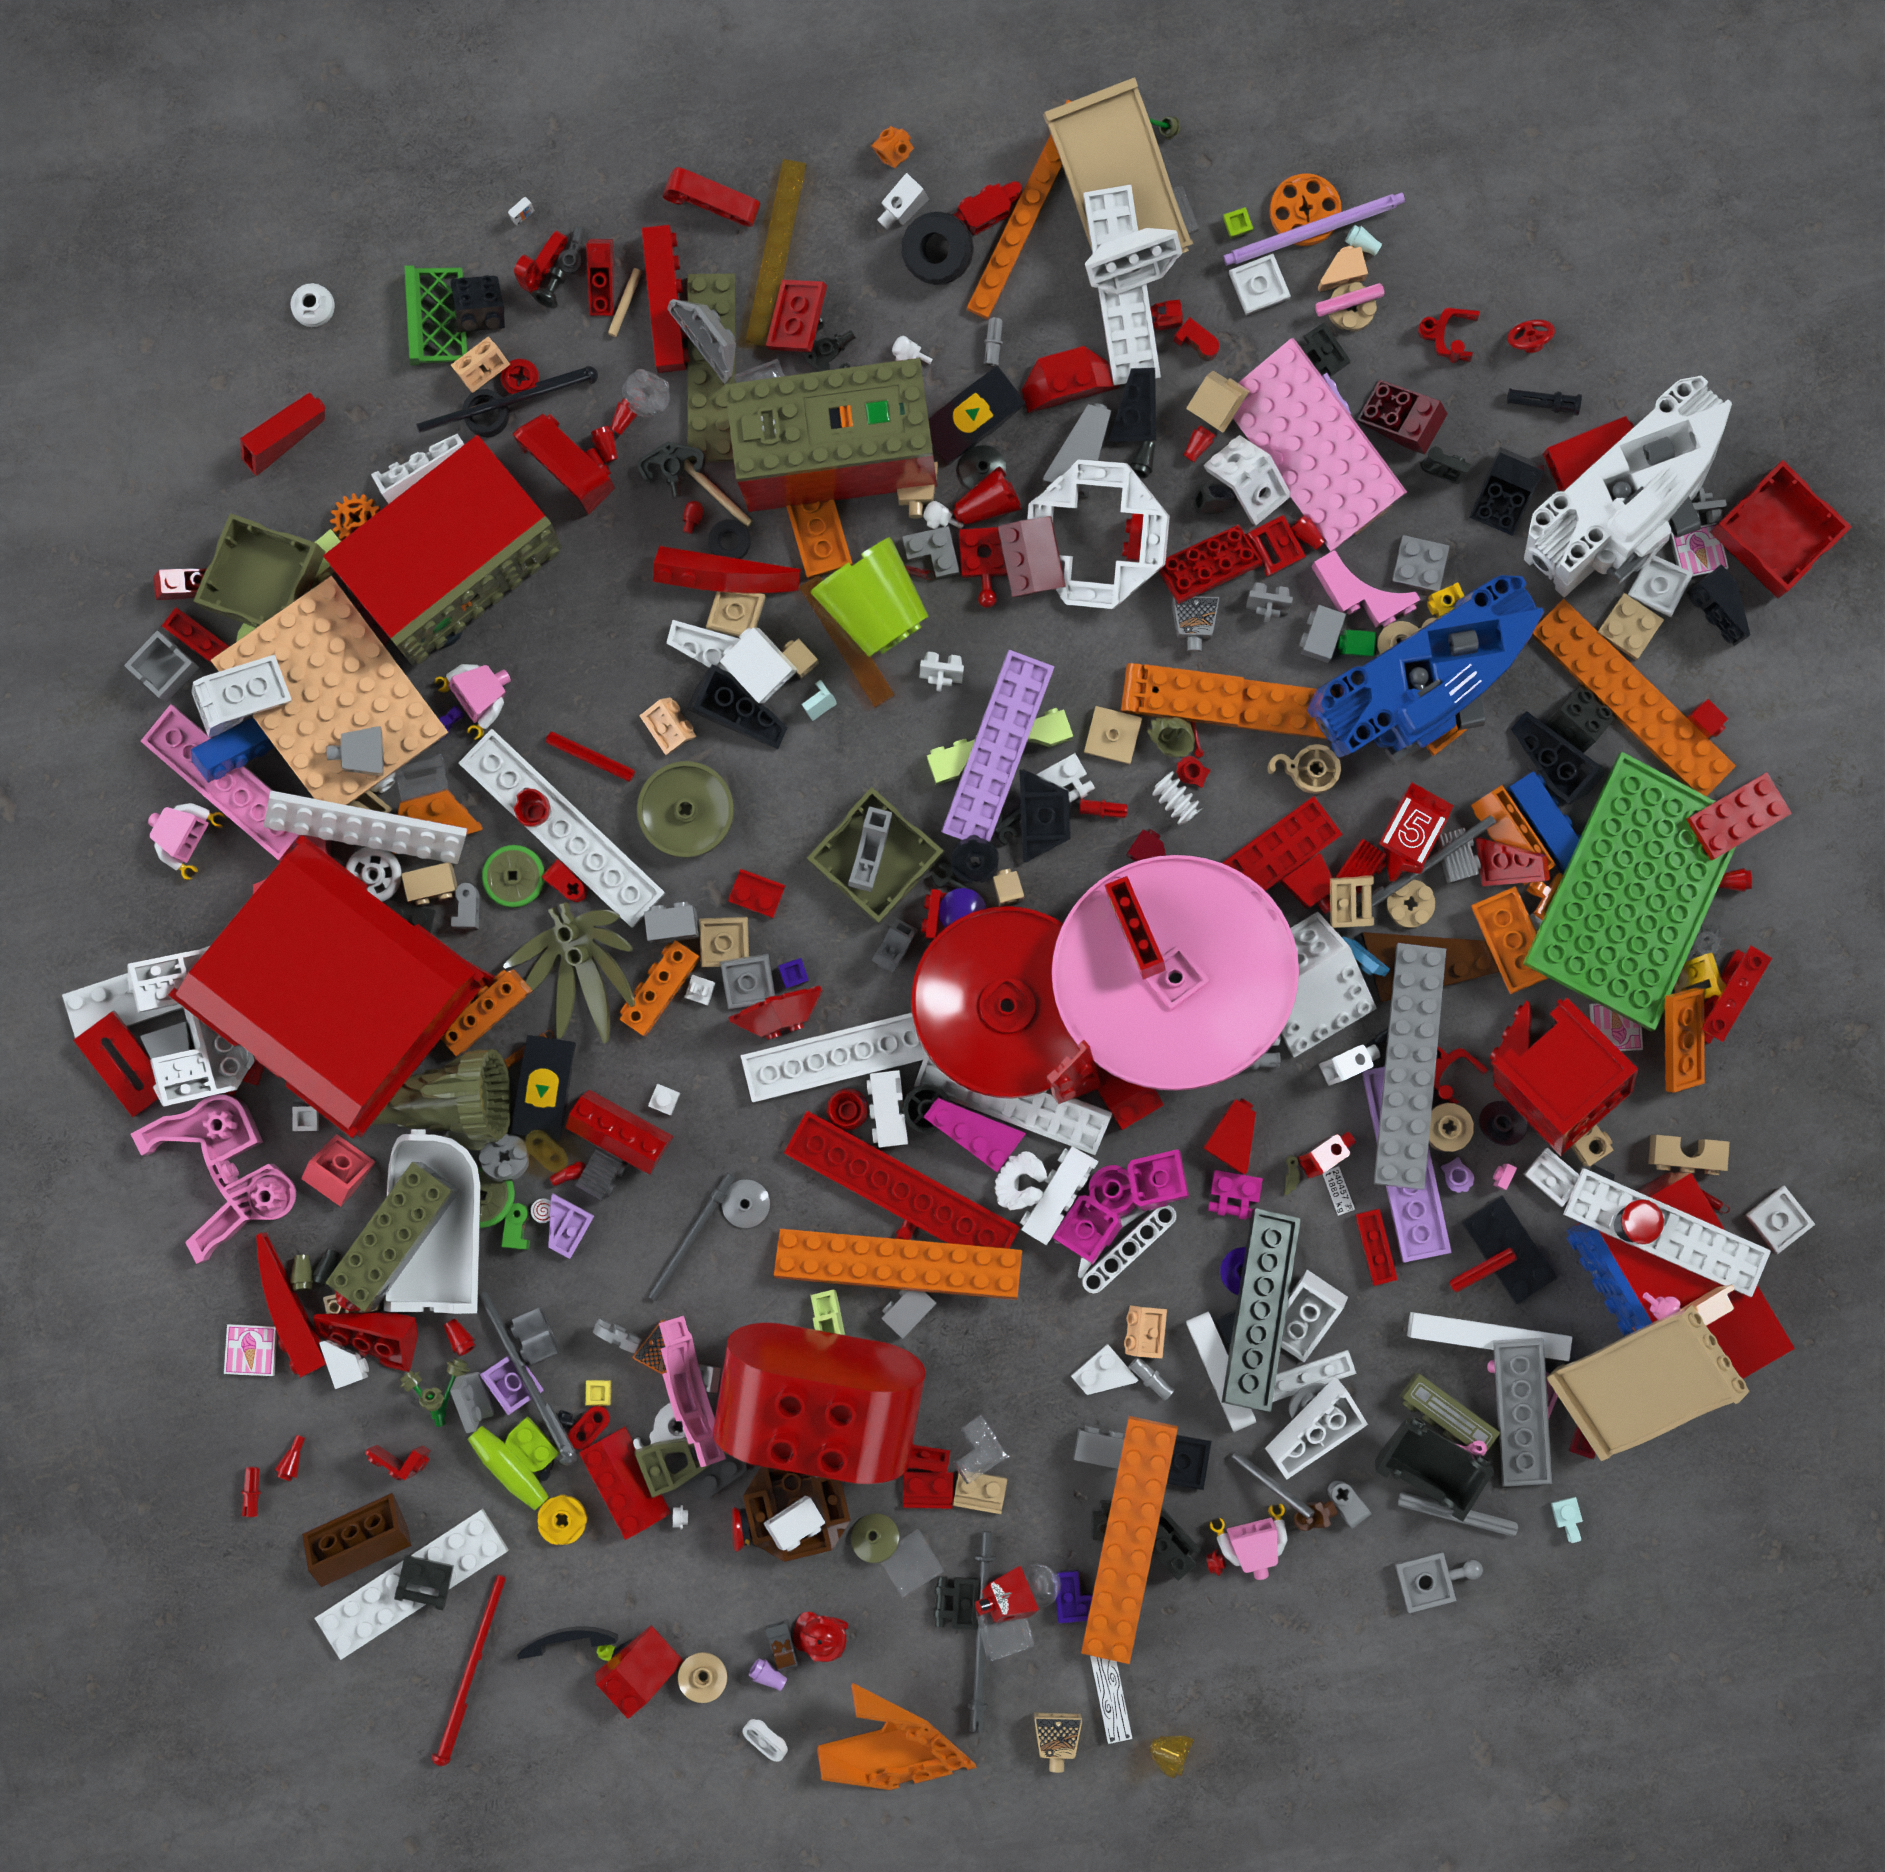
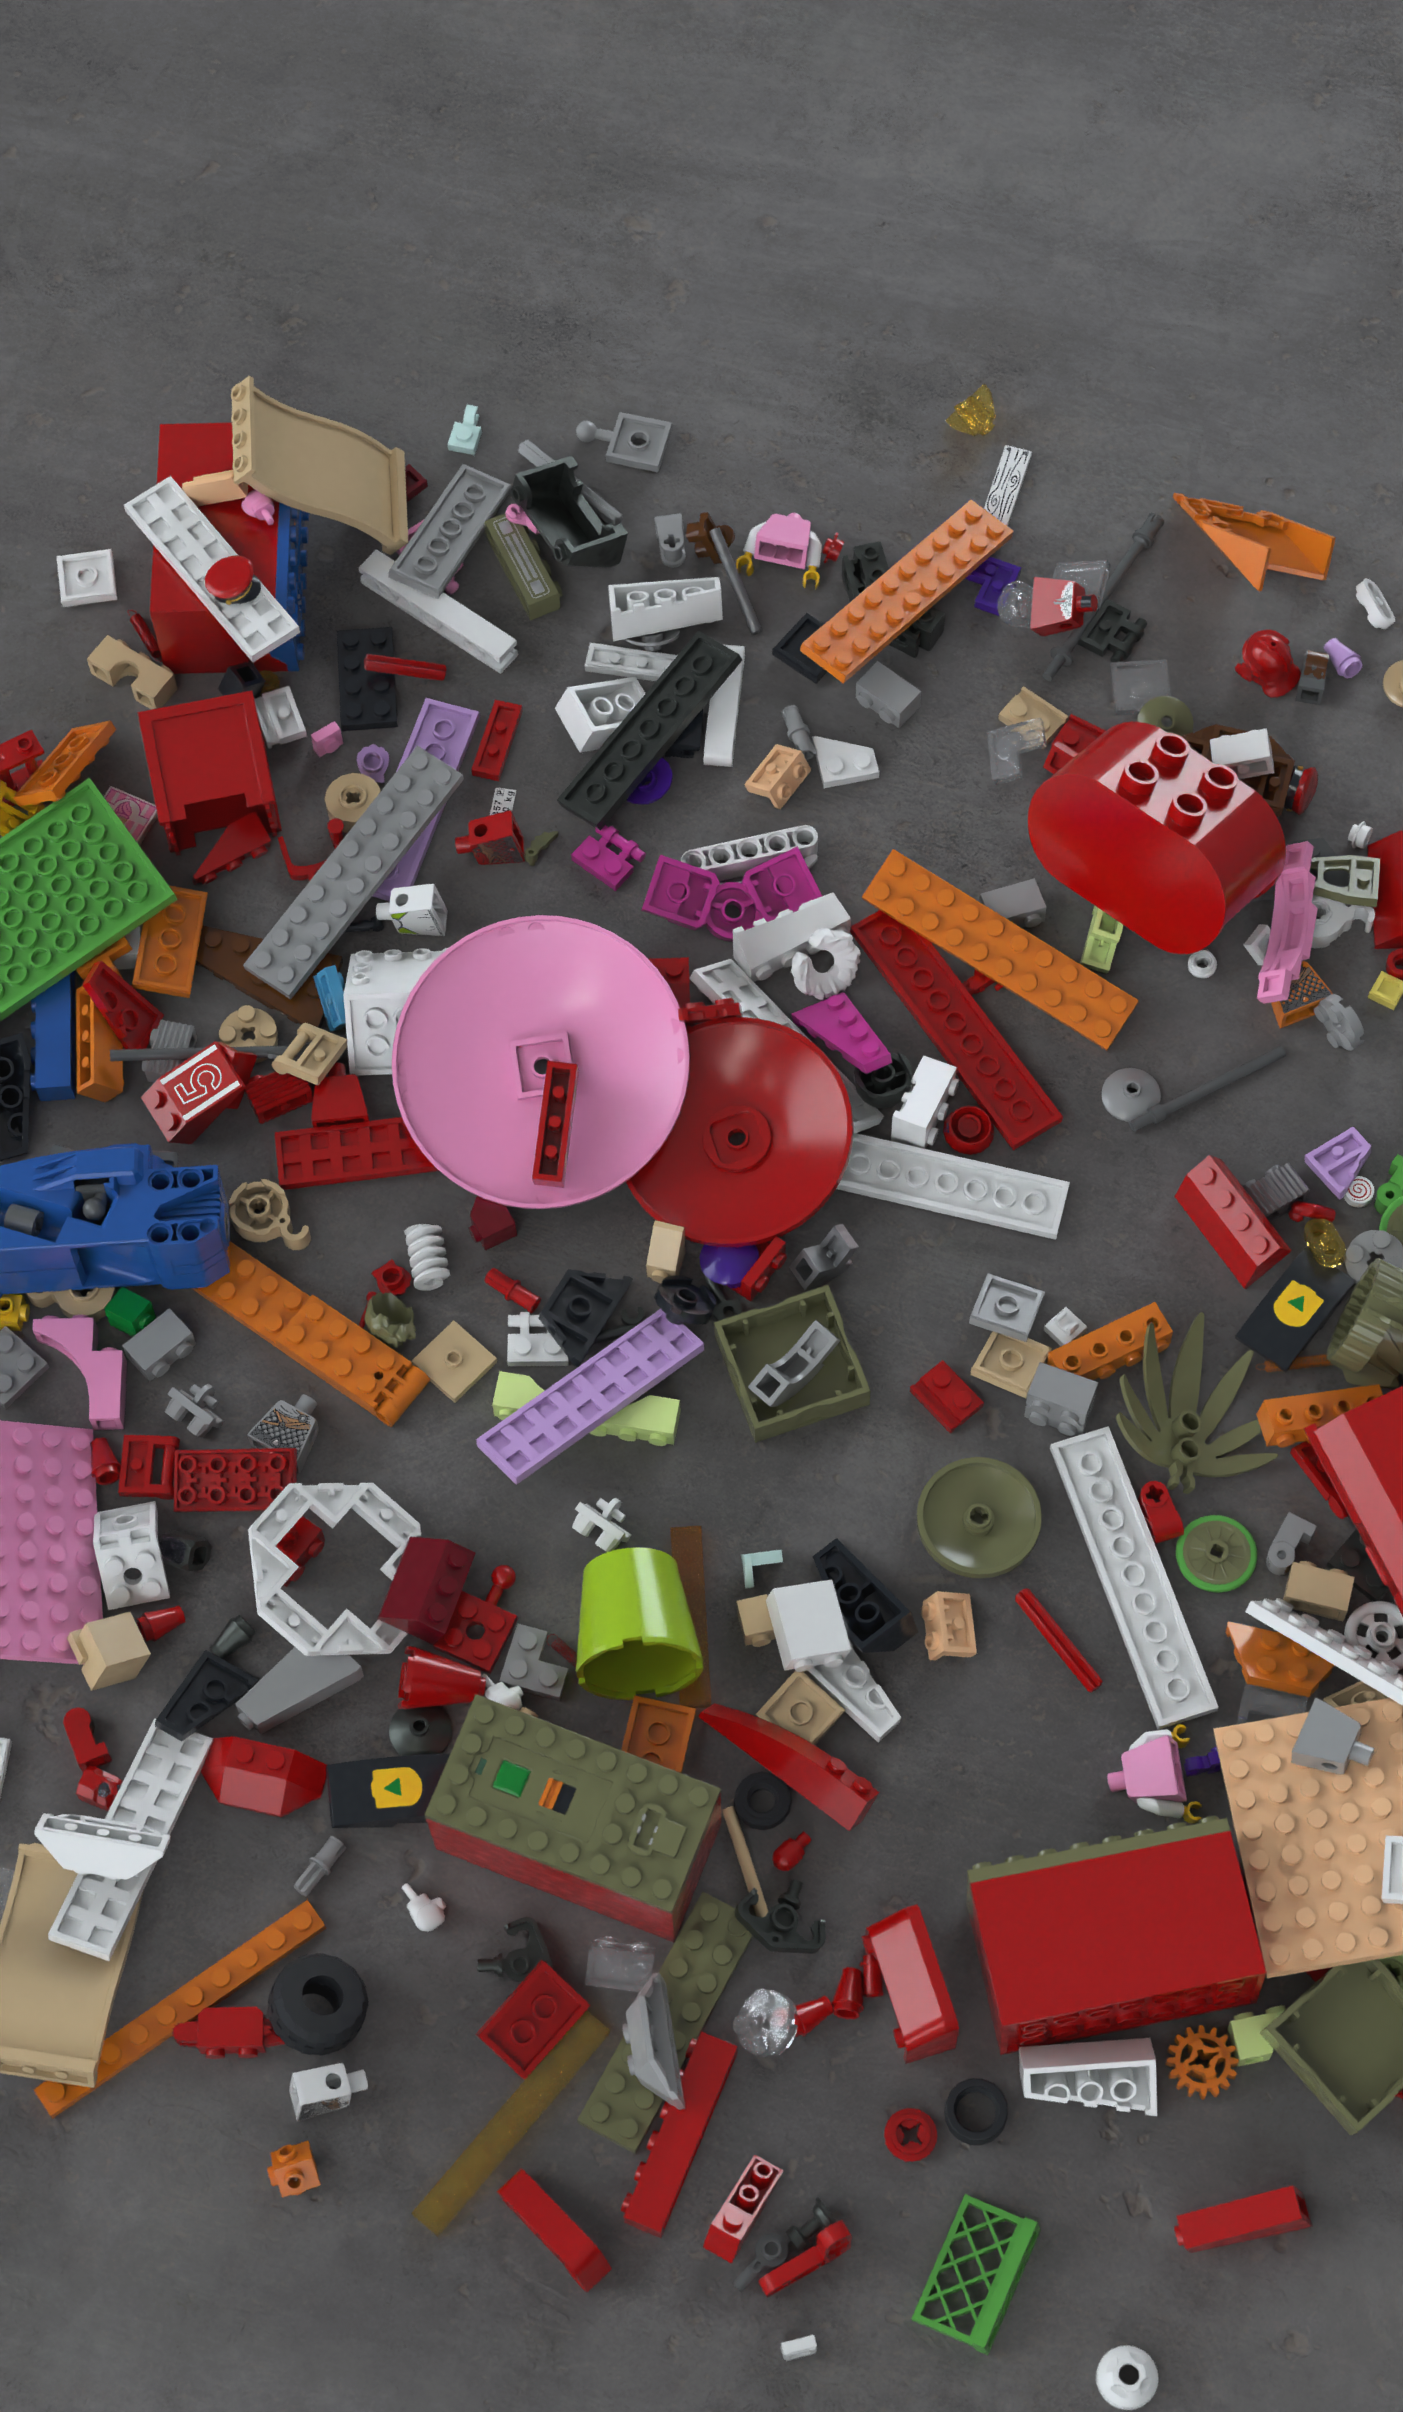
camera: 150 degrees left, 20 degrees down
(478, 303) = (913, 2256): black bracket -> none
(480, 364) = (952, 2162): light nougat brick -> none
(532, 808) = (1156, 1601): red hair -> none
(543, 387) = (888, 2099): black bar -> none
(624, 303) = (731, 2161): tan bar -> none
(664, 1099) = (1165, 1237): white plate -> none
(779, 1013) = (993, 1240): red wedge -> none
(793, 973) = (951, 1291): dark purple plate -> none
(1057, 1737) = (1077, 477): torso -> none
(1233, 1136) = (581, 897): red slope -> none
(1502, 1114) = (288, 777): black dish -> none

